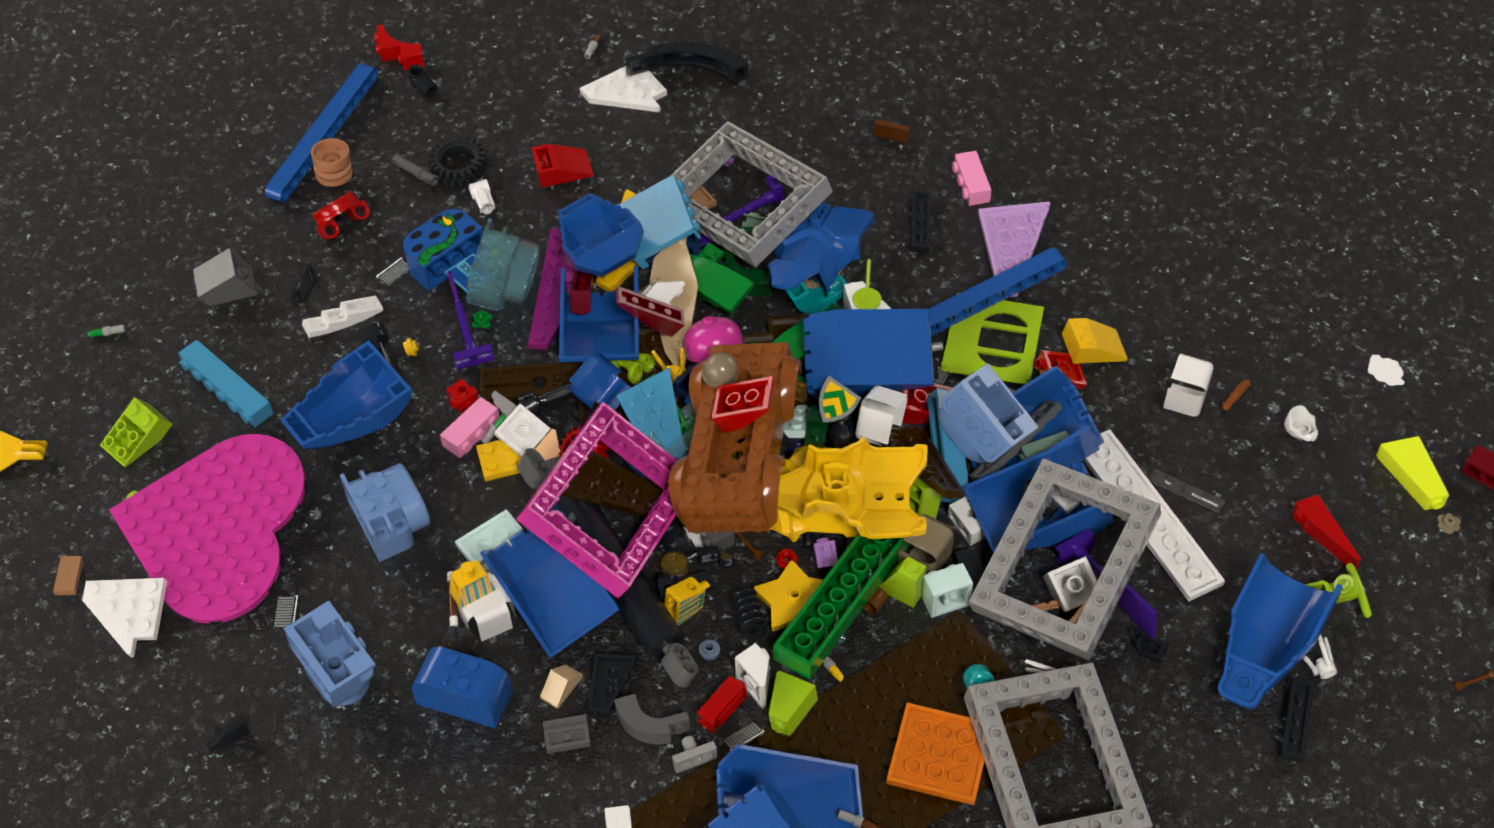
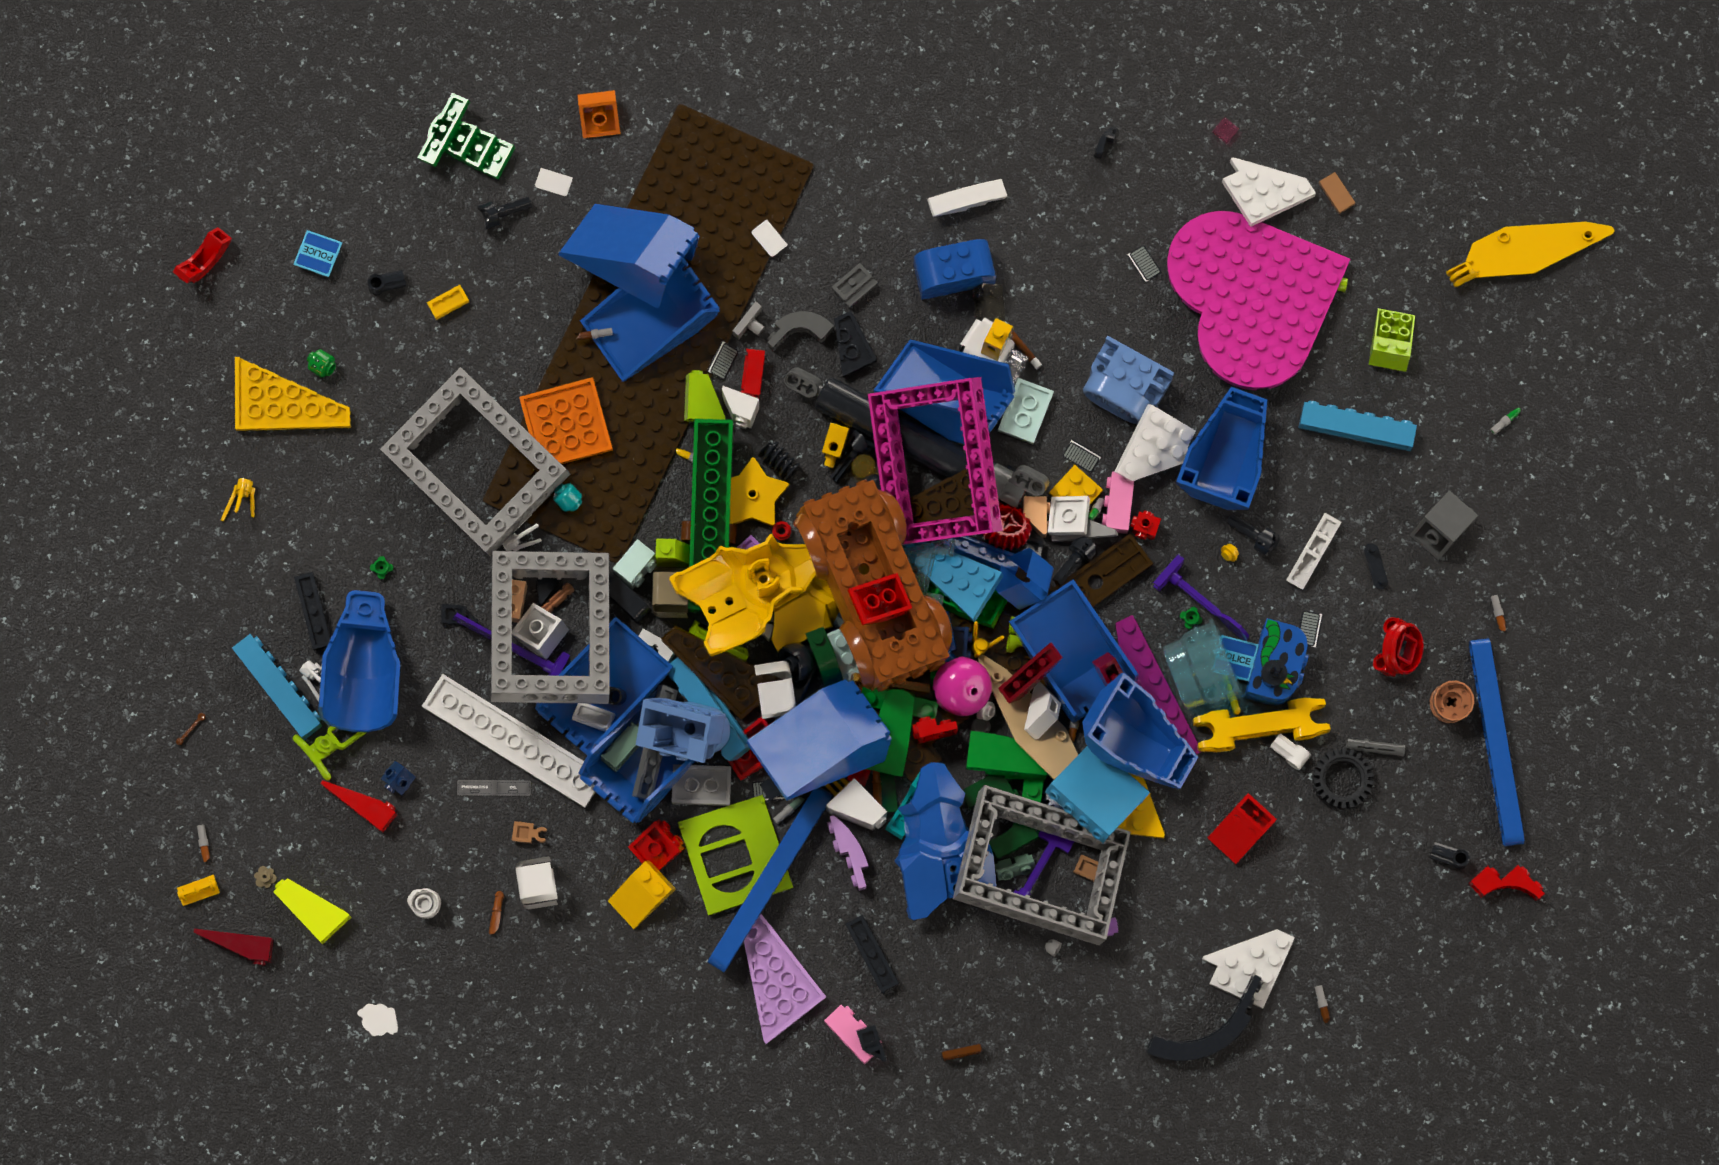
camera: 145 degrees right, 25 degrees up
(112, 685) = (1225, 130): none -> clear pink tile
(241, 209) = (1498, 612): none -> light grey piece
(327, 642) = (1051, 216): medium blue brick -> none
(399, 444) = (1155, 445): none -> white wing
(399, 753) = (967, 197): none -> white slope
(451, 220) = (1273, 673): none -> black piece
(472, 485) = (1081, 456): none -> sticker
(520, 226) = (1228, 729): none -> yellow piece
(559, 685) = (886, 324): tan slope -> none
(706, 654) = (792, 422): sand blue plate -> none
(720, 370) = (919, 623): dark tan helmet -> none
(759, 324) = (928, 730): none -> red plate
(836, 400) = (816, 672): sticker -> none
(867, 297) = (857, 807): lime piece -> none
(890, 288) = (847, 844): none -> lavender slope
(962, 157) = (871, 1042): none -> black slope
(1176, 438) = (524, 832): none -> medium nougat plate
(1206, 720) = (381, 572): none -> green plate
(1279, 531) = (397, 778): none -> dark blue brick
(1367, 670) = (277, 687): none -> dark azure brick

